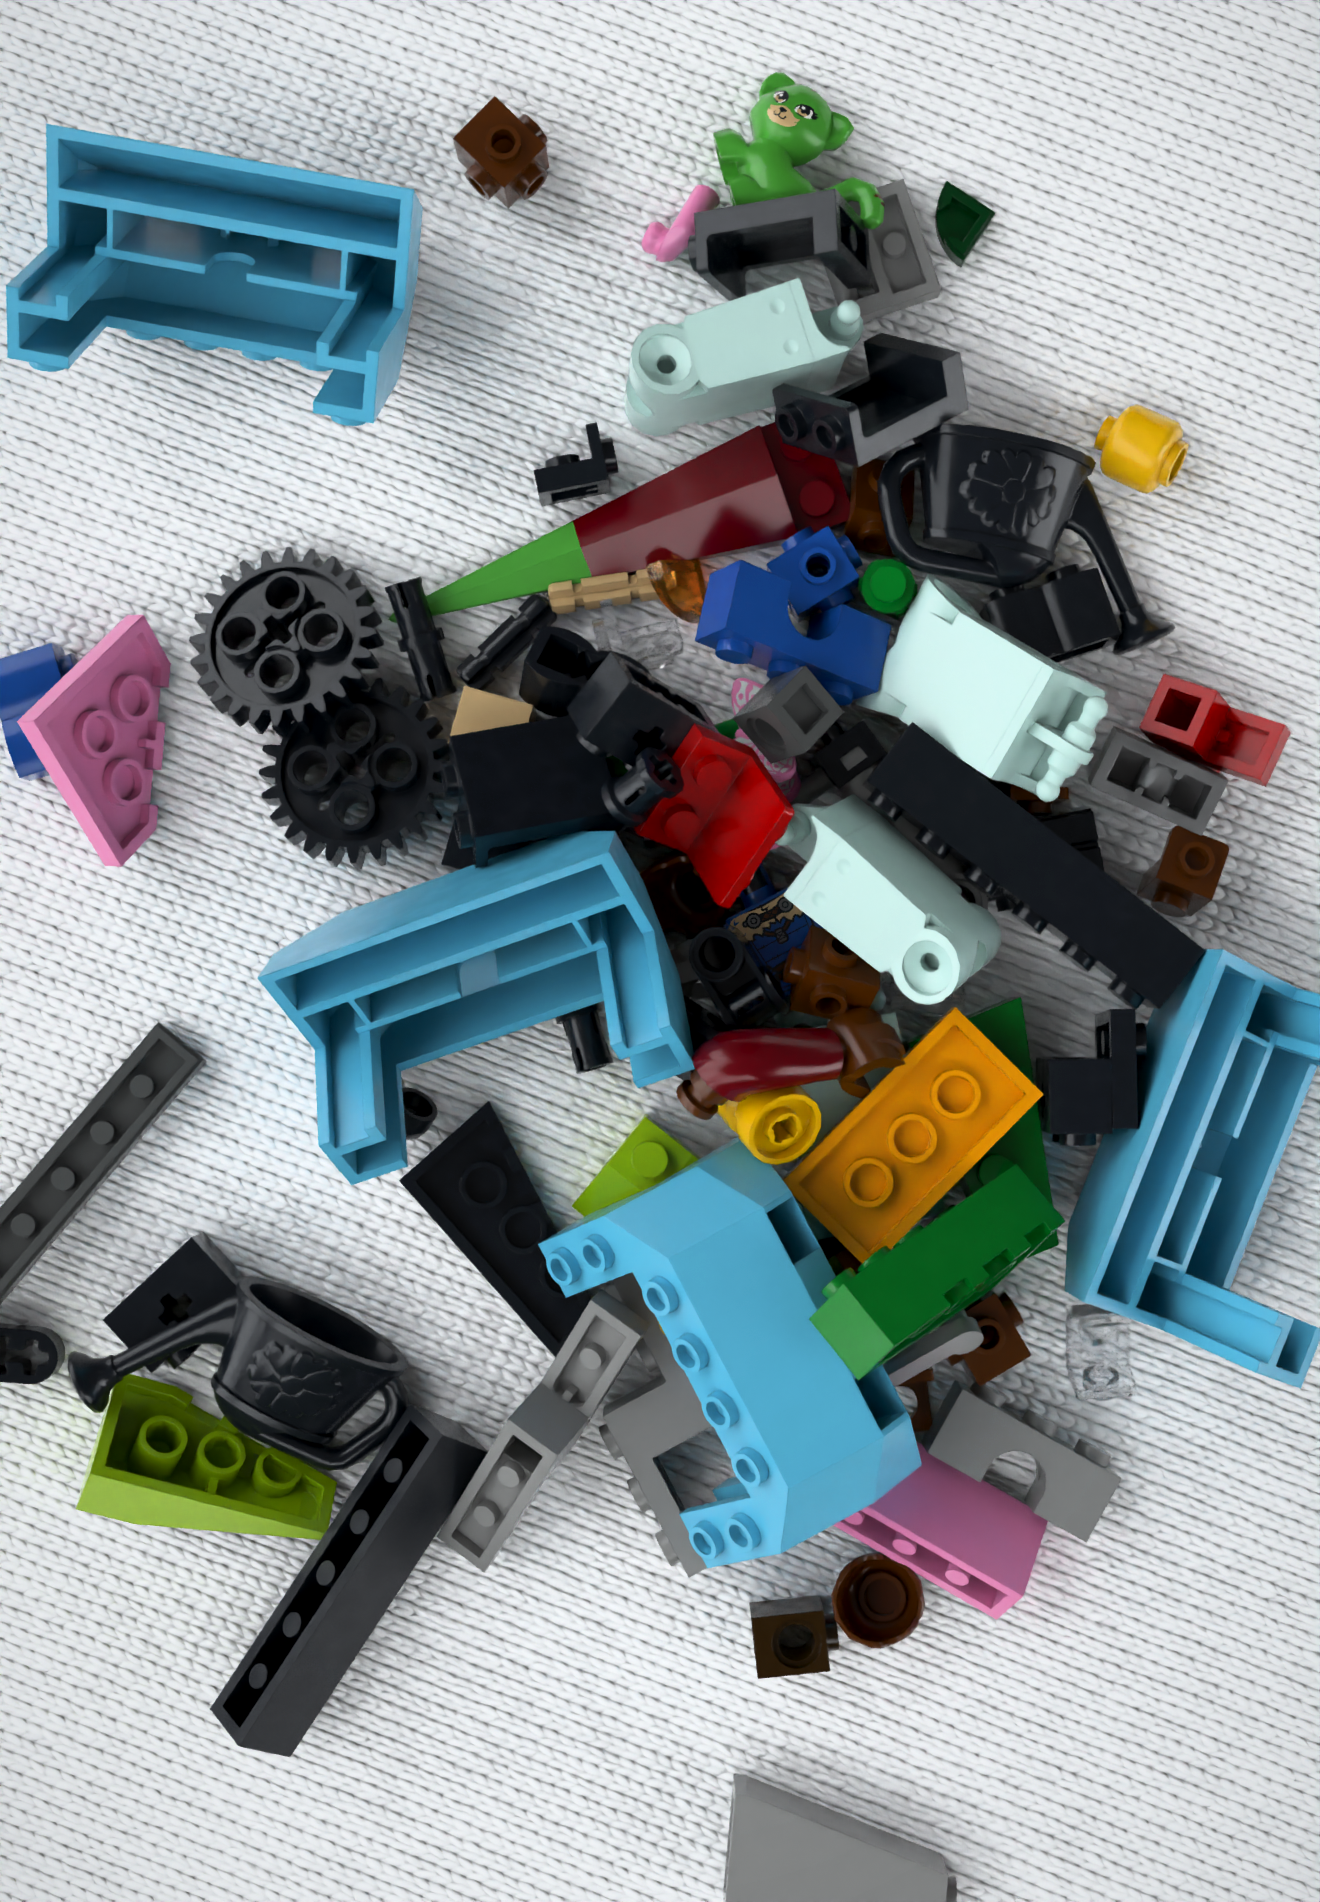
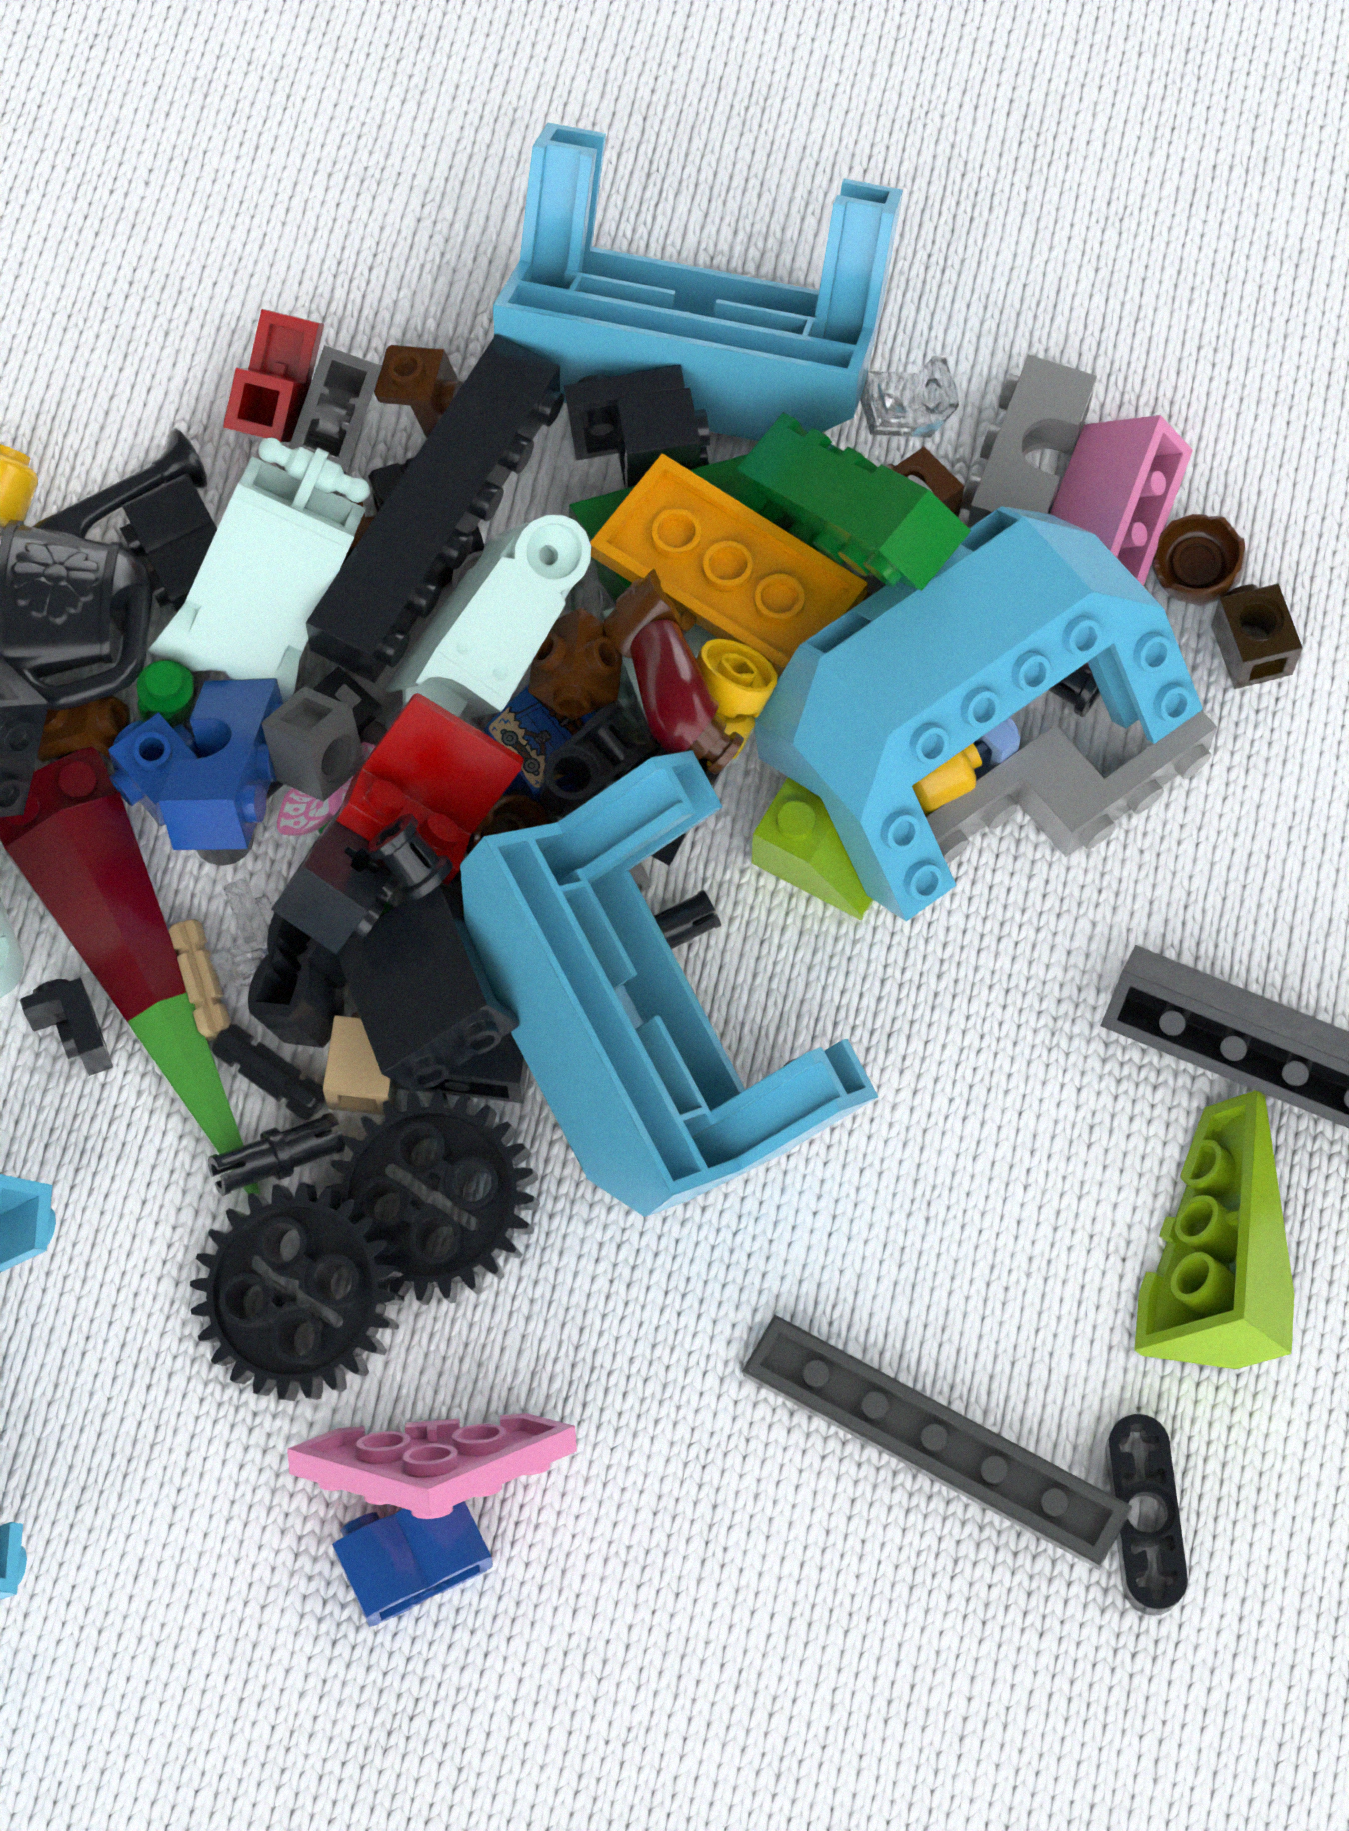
camera: 105 degrees left, 20 degrees down
(193, 1270) = (1065, 1322): black brick -> none
(285, 1371) = (1098, 1163): black piece -> none
(495, 1217) = (900, 972): black wing -> none
(543, 1430) = (1098, 886): light grey bracket -> none
(679, 587) = (189, 900): clear orange tile -> none

